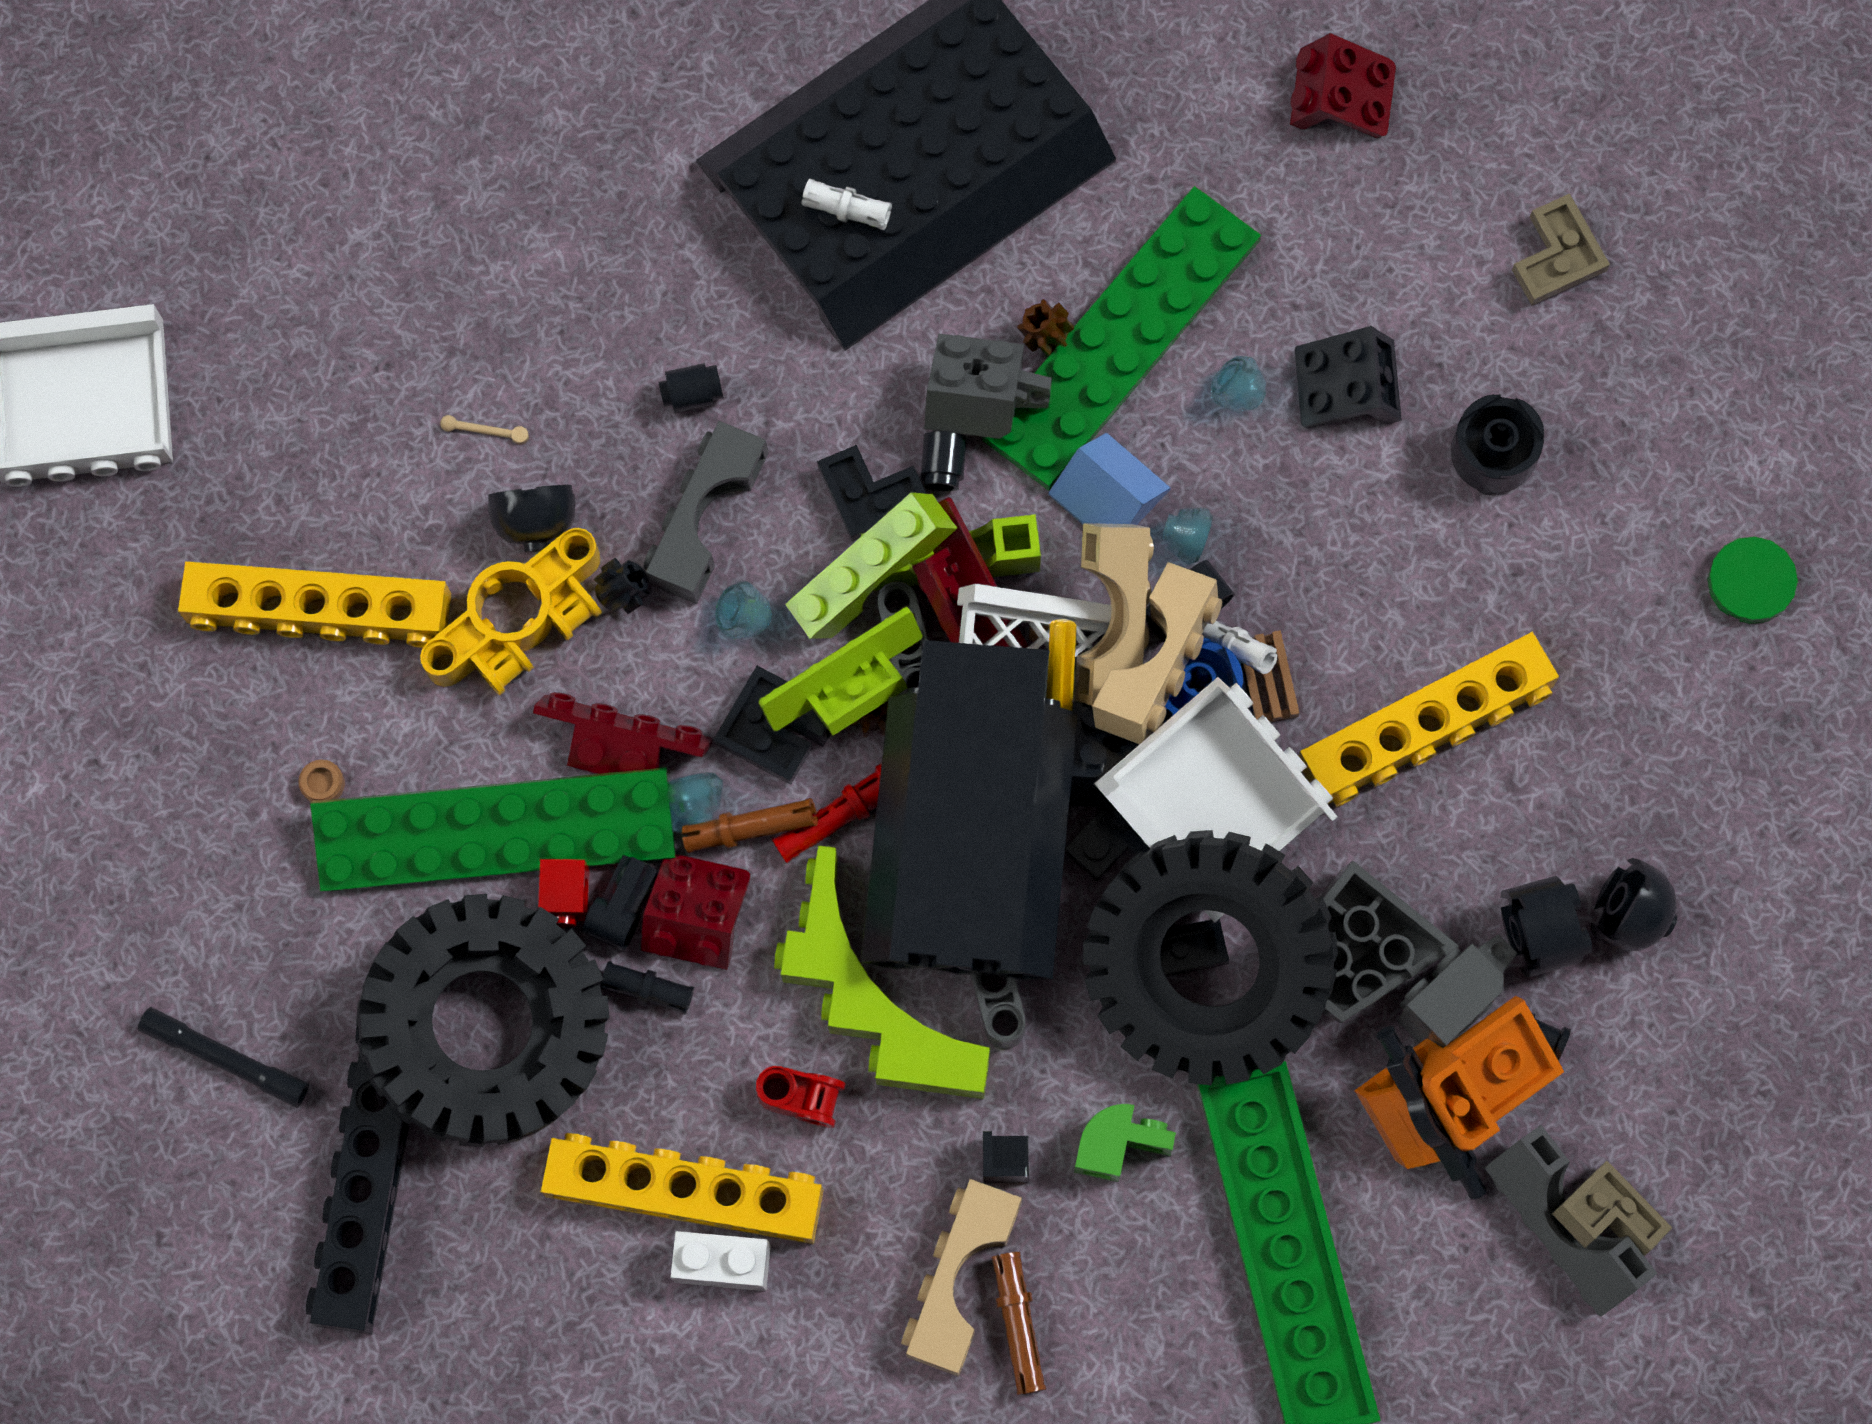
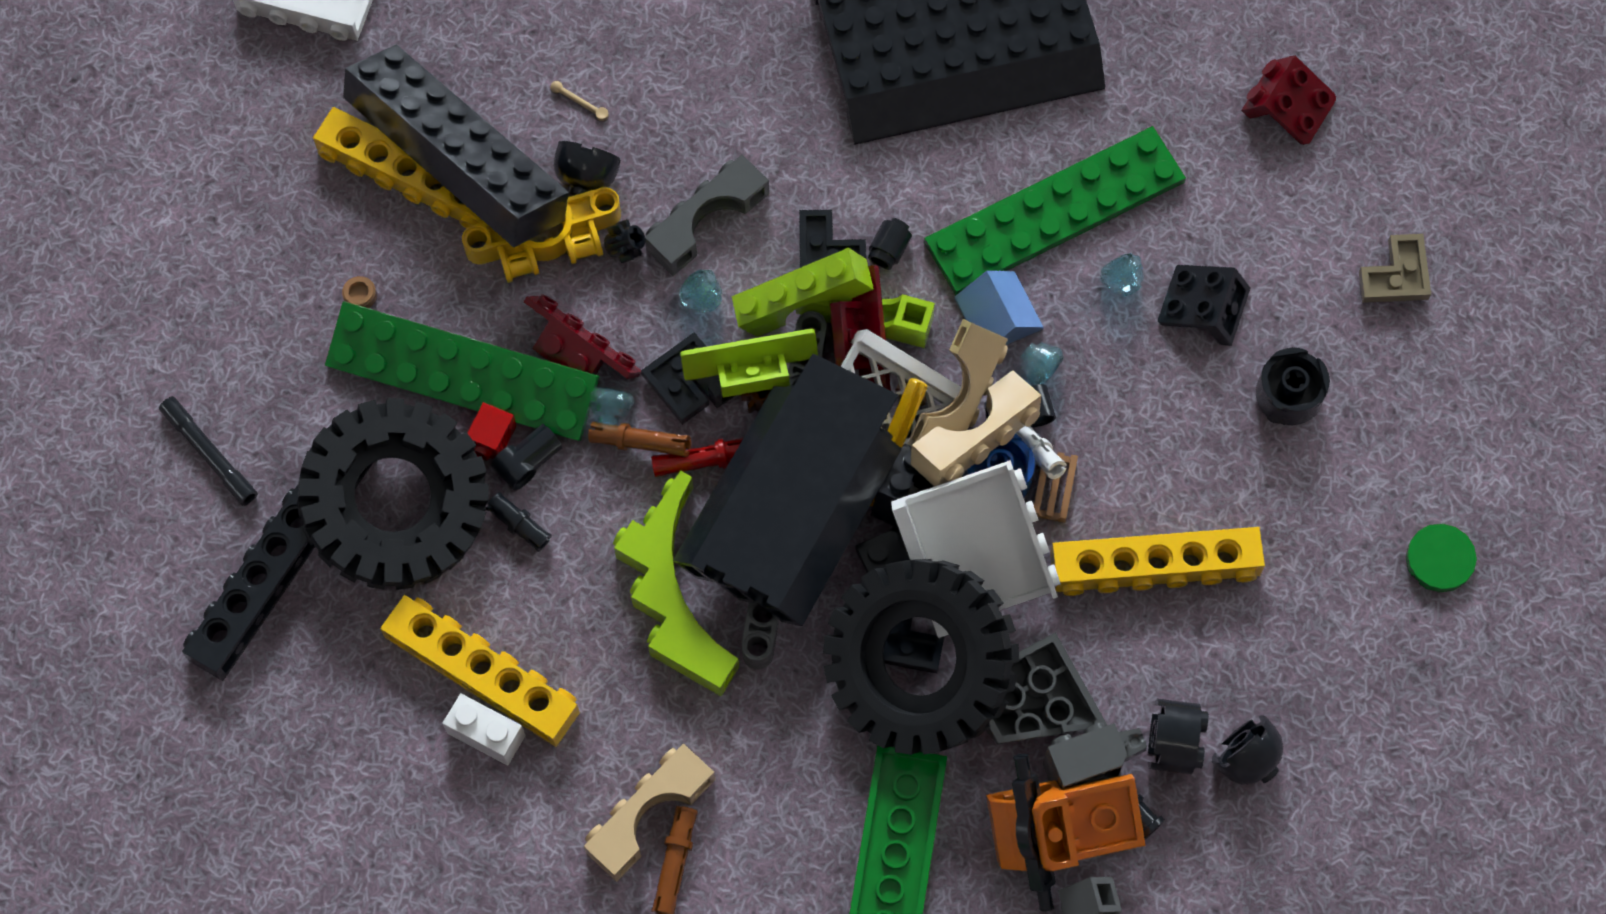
camera: 20 degrees right, 5 degrees down
(363, 551) = (455, 145): none -> black brick
(691, 387) = (734, 126): black brick -> none
(694, 911) = (574, 482): dark red bracket -> none
(802, 1095) = (596, 643): red piece -> none
(846, 204) = (895, 40): white pin -> none
(979, 386) = (935, 201): dark grey hinge -> none
(1005, 1159) = (715, 742): black panel -> none
(1045, 327) = (1002, 180): reddish brown gear -> none
(1109, 1134) = (798, 756): bright green brick -> none

